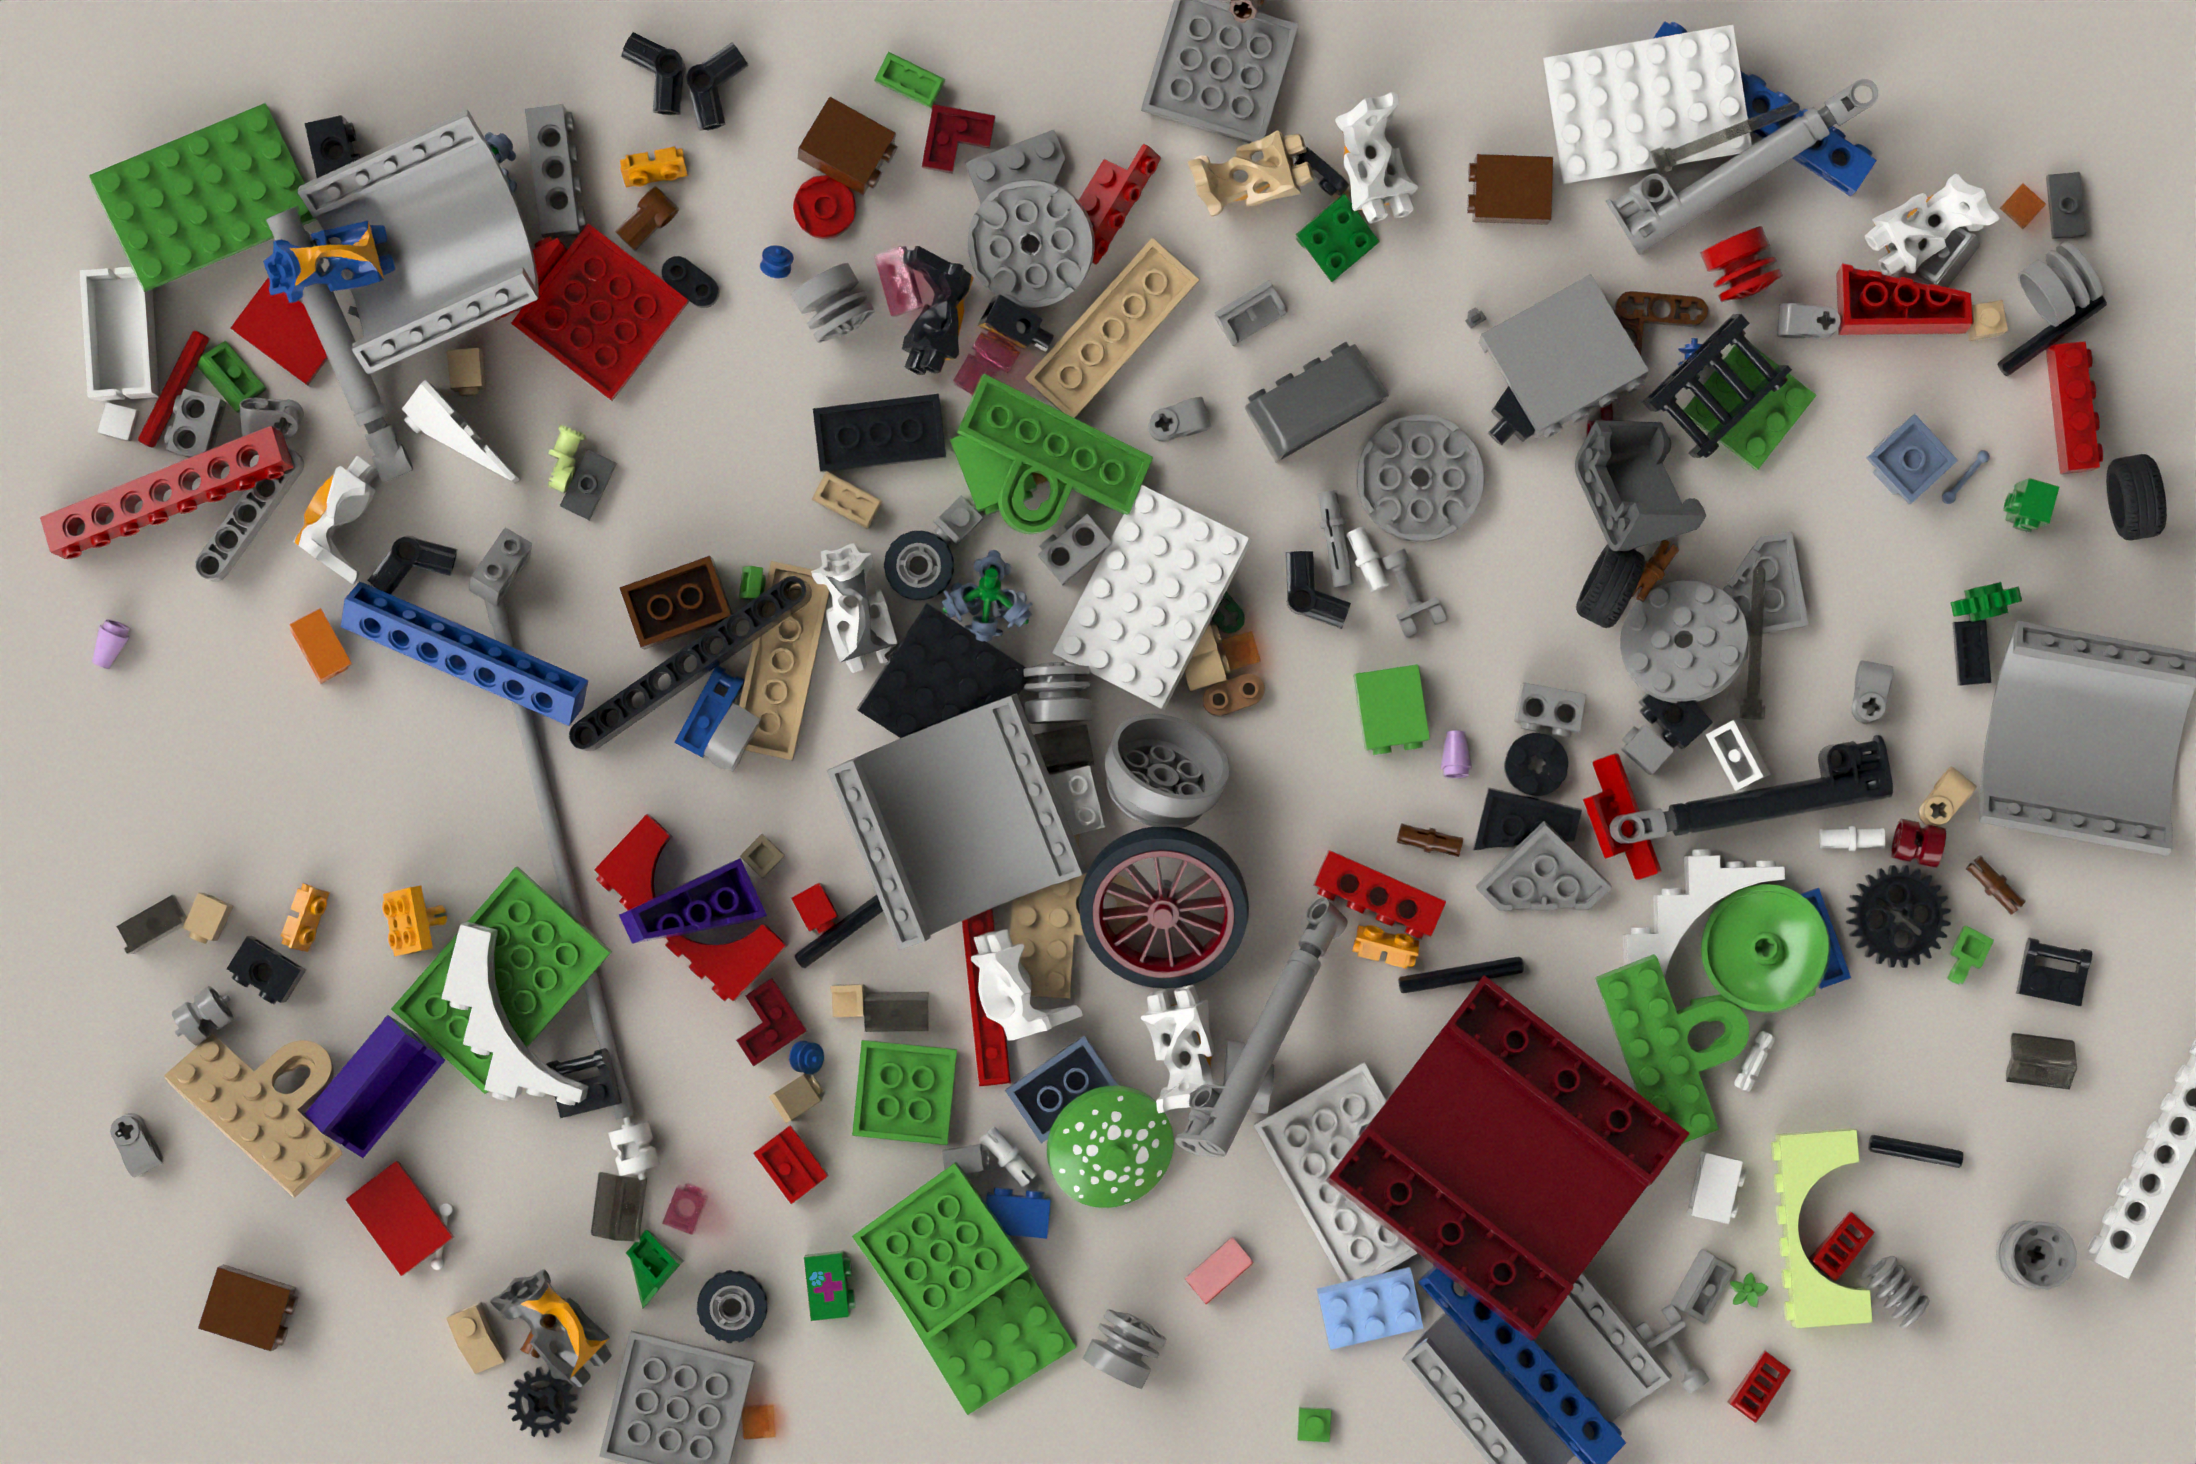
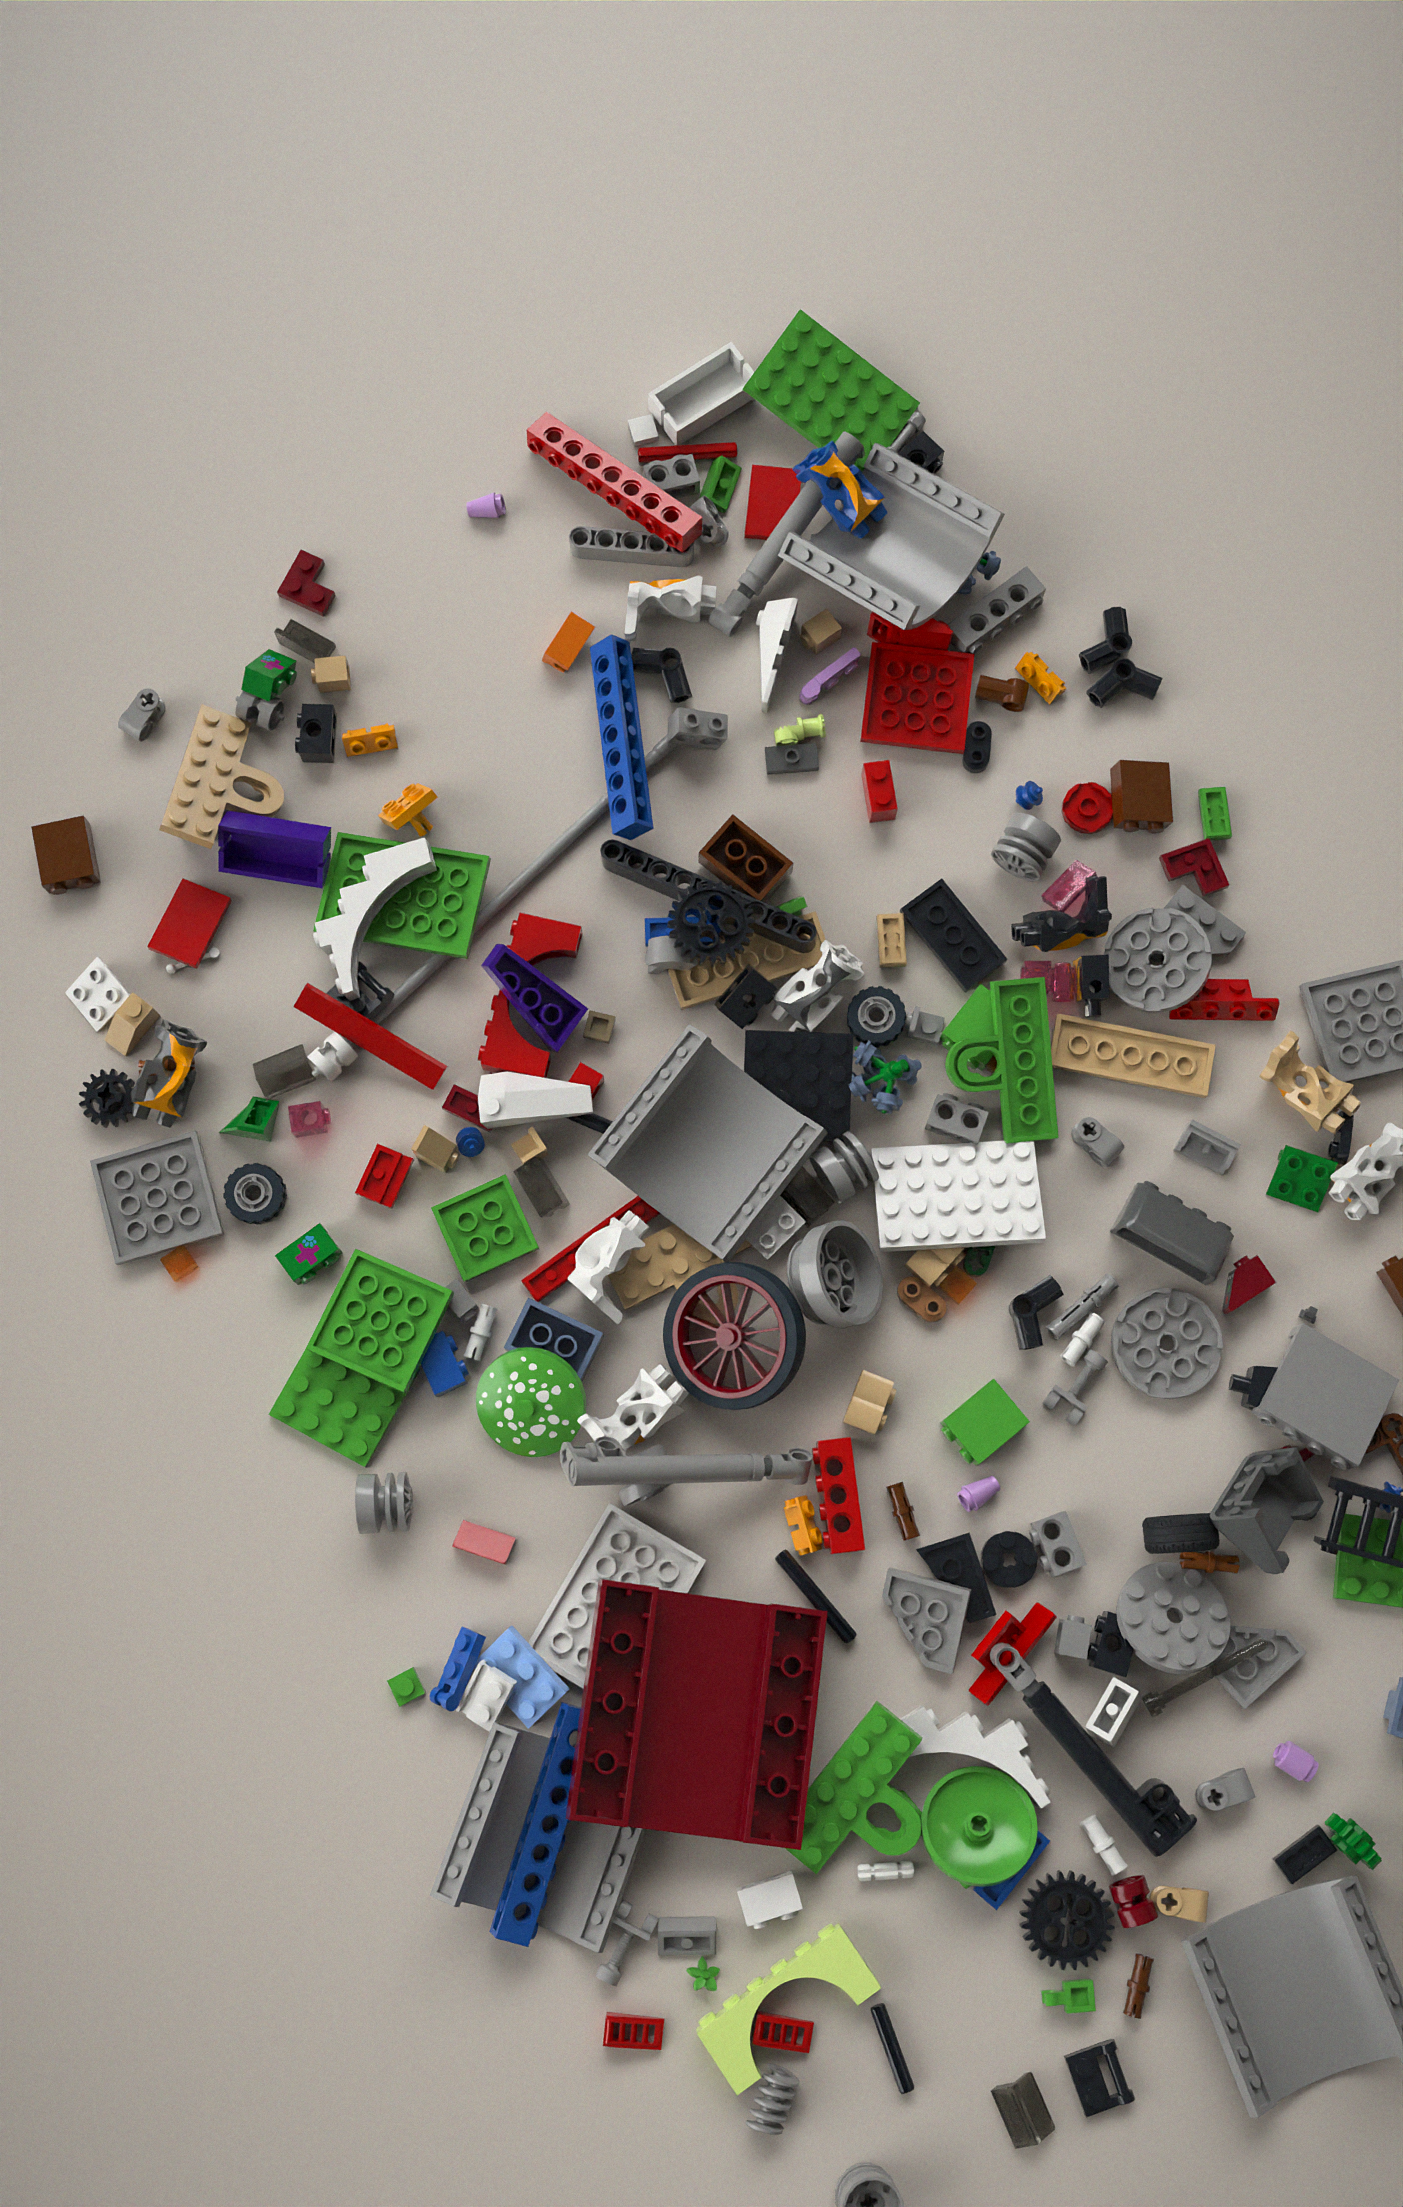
camera: 60 degrees right, 10 degrees down
(81, 895) = (300, 584): none -> dark red plate
(174, 985) = (269, 675): none -> green brick
(286, 123) = (913, 425): none -> light grey bar
(422, 1354) = (97, 994): none -> white hinge
(522, 393) = (828, 677): none -> lavender hinge
(637, 1098) = (370, 1036): none -> red tile
(680, 416) = (879, 791): none -> red brick
(727, 652) = (689, 934): none -> black gear
(794, 979) = (522, 1098): none -> white wedge
(809, 679) = (751, 983): none -> black brick
(1305, 810) = (868, 1402): none -> tan brick
(1327, 1364) = (458, 1669): none -> blue plate
(1369, 1351) = (486, 1695): none -> white plate
(1407, 361) = (1245, 1282): none -> dark red slope
(1883, 607) = (1295, 1761): none -> lavender brick

